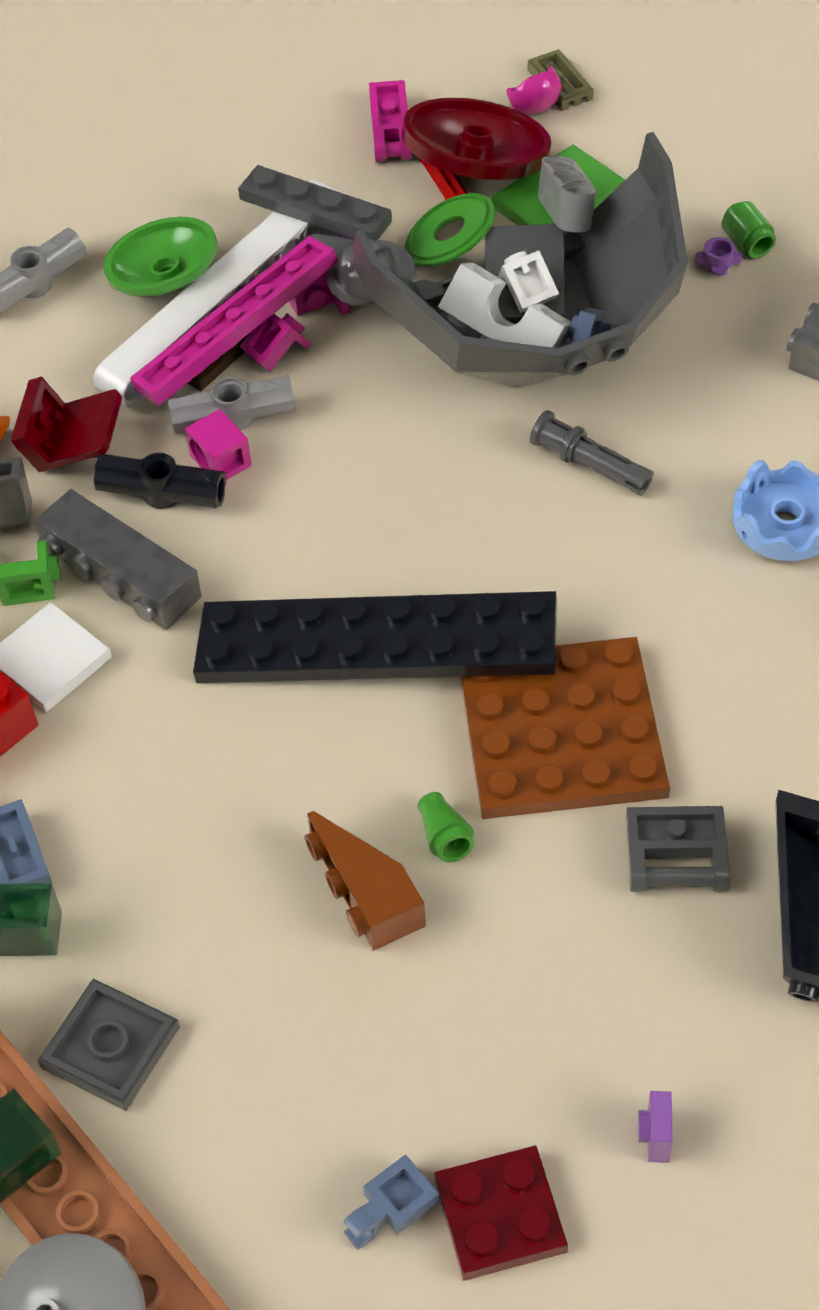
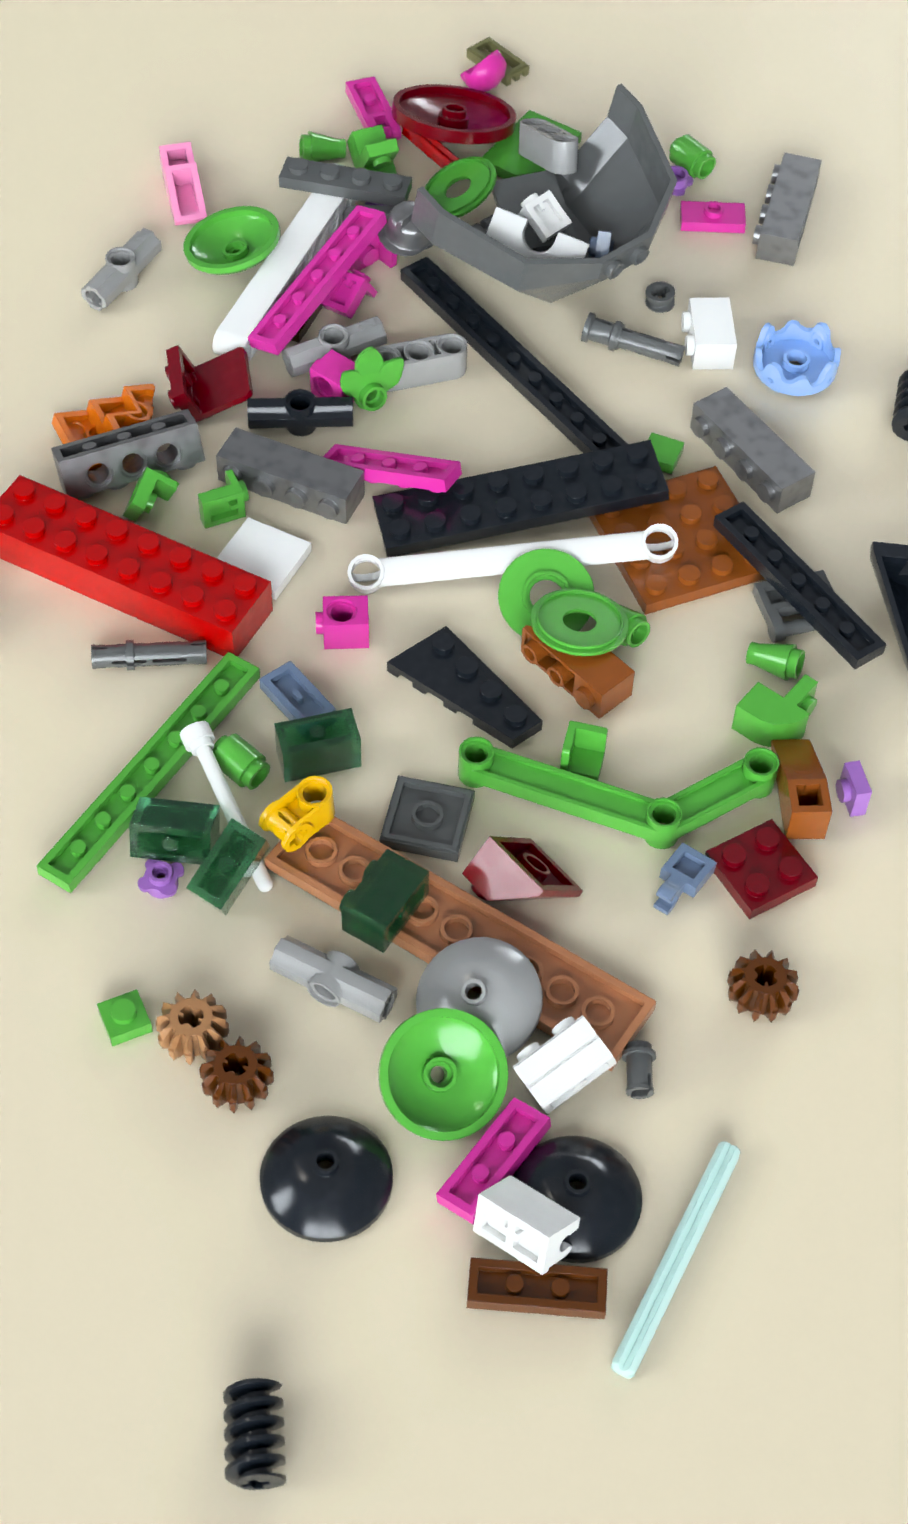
camera: 20 degrees left, 0 degrees up
(114, 775) = (344, 622): none -> dark pink brick
(139, 179) = (182, 183): none -> bright pink slope
(185, 1150) = (517, 871): none -> dark red slope
(220, 868) = (466, 685): none -> black wing
(238, 572) = (398, 468): none -> dark pink plate
(254, 449) = (371, 379): none -> bright green plate
(312, 157) = (321, 147): none -> bright green cone
(322, 440) = (428, 359): none -> light grey beam
(325, 999) = (584, 749): none -> bright green panel
(336, 717) = (496, 559): none -> white piece
(348, 1088) = (614, 806): none -> bright green piece
(352, 735) = (536, 567): none -> bright green piece
(366, 171) = (372, 150): none -> bright green brick
(405, 846) = (549, 626): none -> bright green piece
(436, 456) = (509, 358): none -> black plate
(579, 606) = (667, 451): none -> bright green tile
(586, 1109) = (802, 790): none -> dark orange slope
(591, 1005) = (769, 716): none -> bright green brick
(624, 919) = (778, 659): none -> bright green cone
(652, 411) = (662, 304): none -> dark grey bush
(679, 827) = (799, 585): none -> black plate
(688, 625) = (752, 450): none -> flat silver brick
(690, 459) = (710, 333): none -> white brick
(750, 308) = (712, 217): none -> dark pink plate

